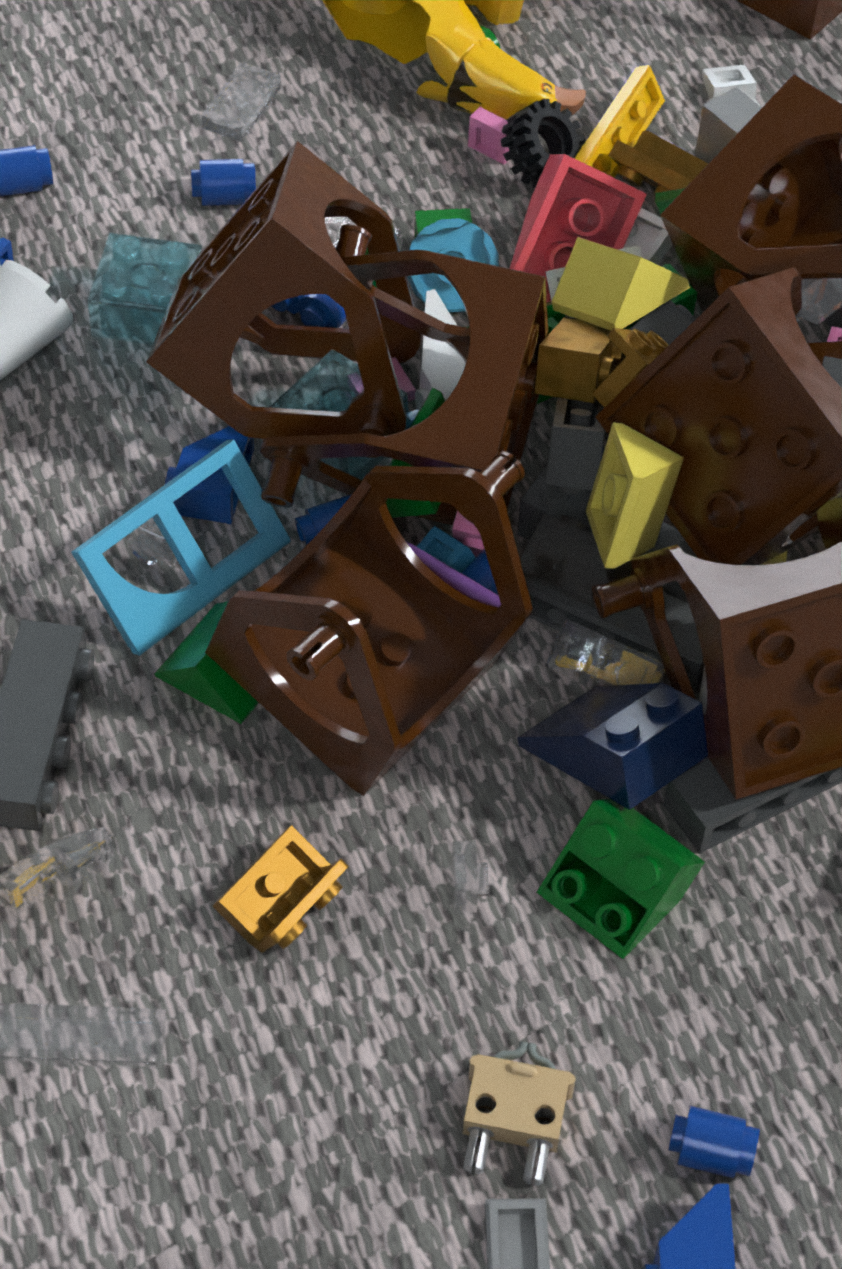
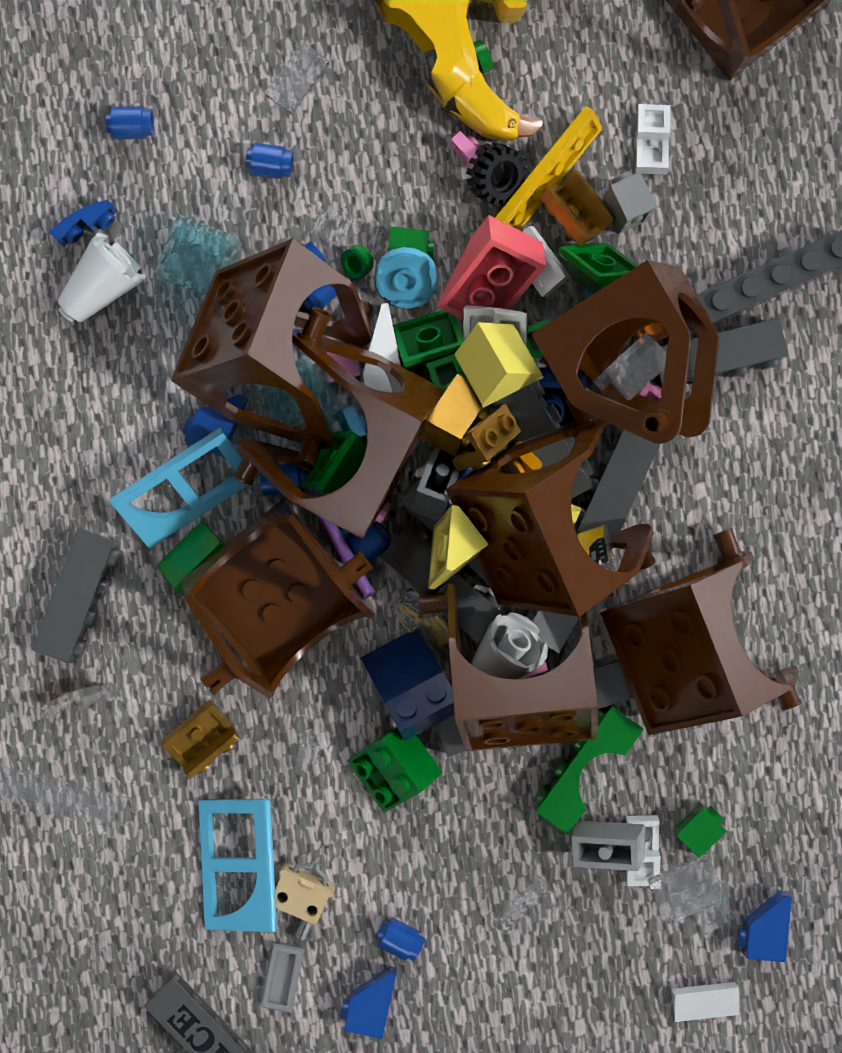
camera: 20 degrees right, 35 degrees up
(452, 1129) = (260, 909): none -> medium azure window

